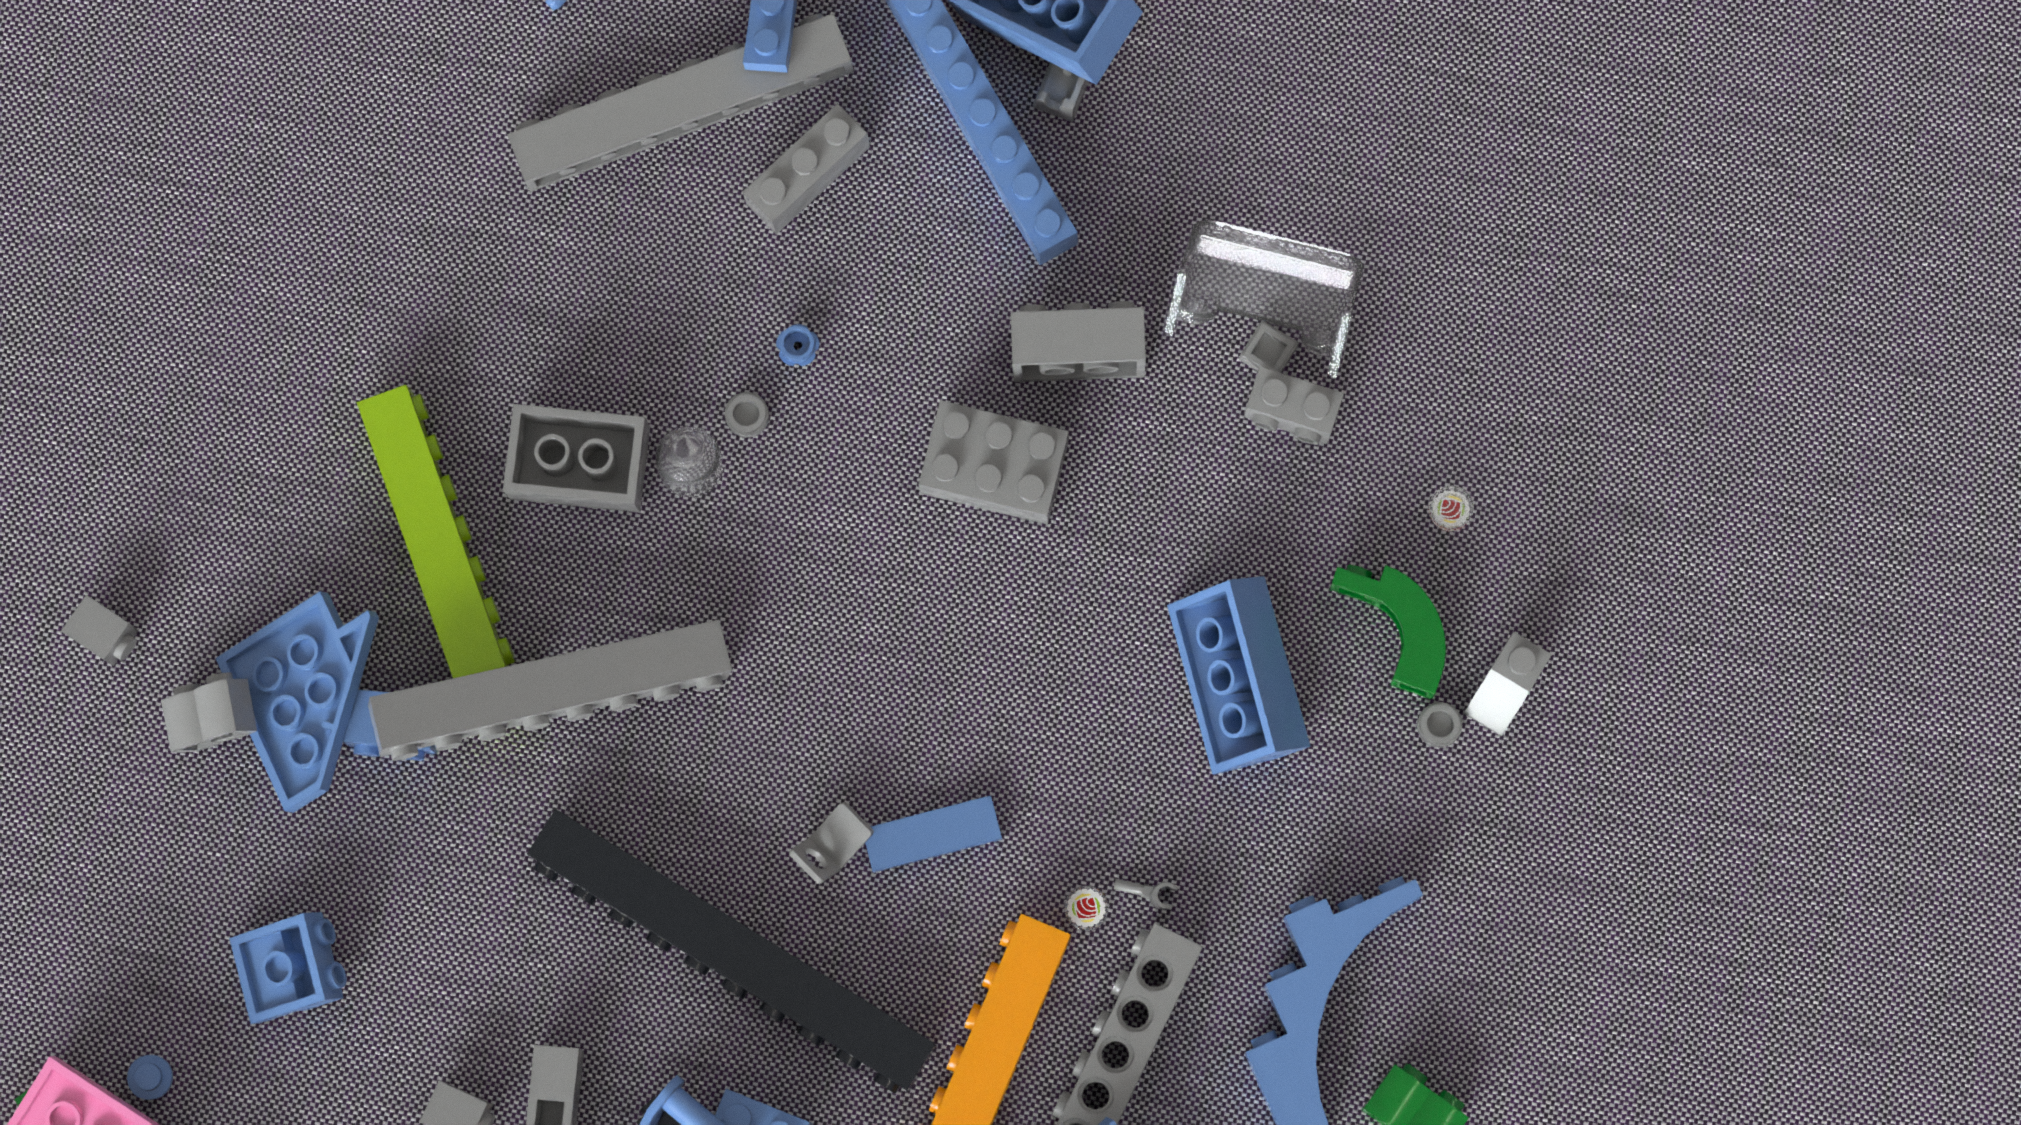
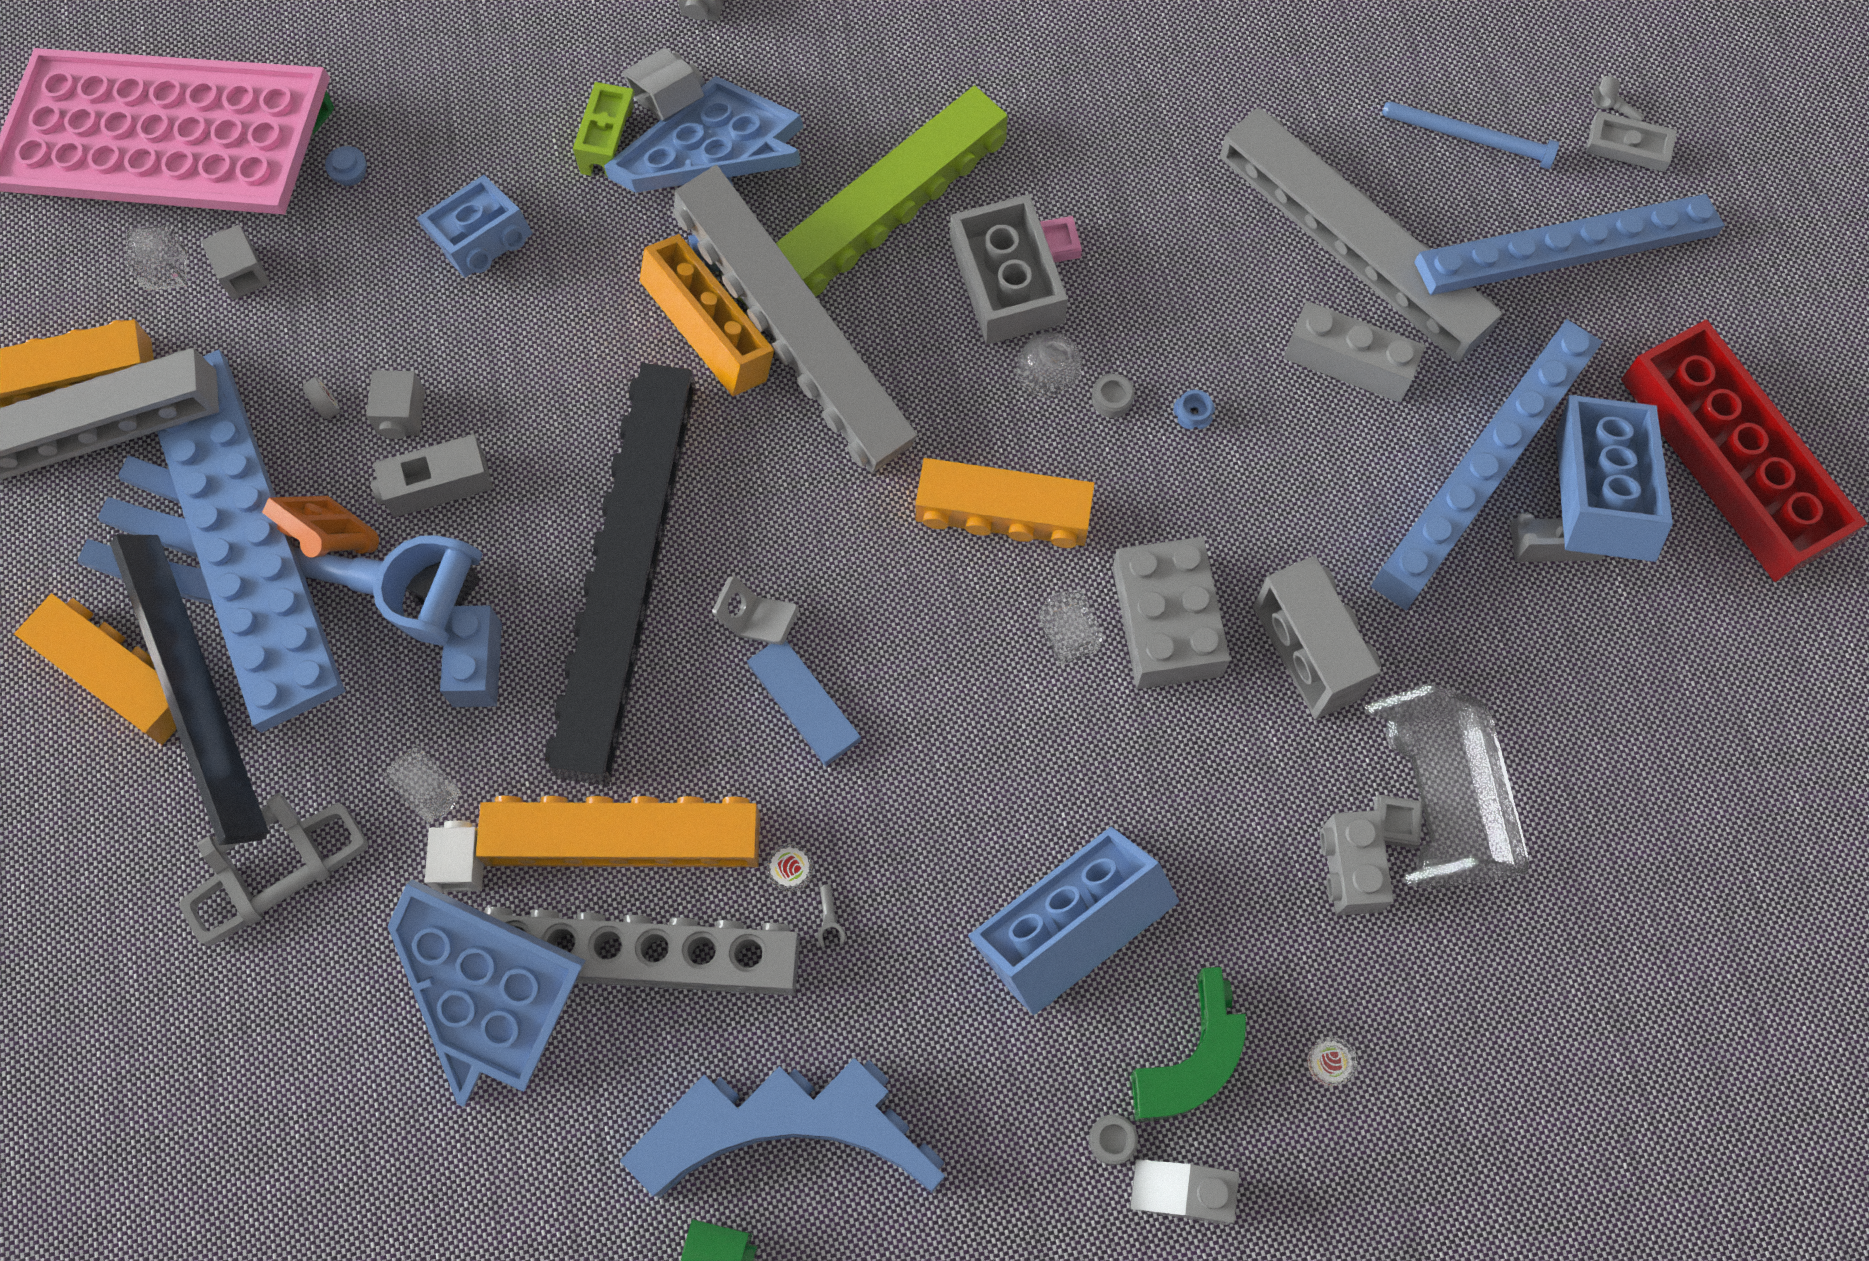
camera: 60 degrees right, 10 degrees down
(233, 793) = (602, 125): none -> lime hinge
(497, 772) = (706, 315): none -> light orange brick
(555, 389) = (1062, 238): none -> bright pink tile
(818, 566) = (1004, 502): none -> light orange brick
(966, 559) = (1070, 626): none -> clear brick

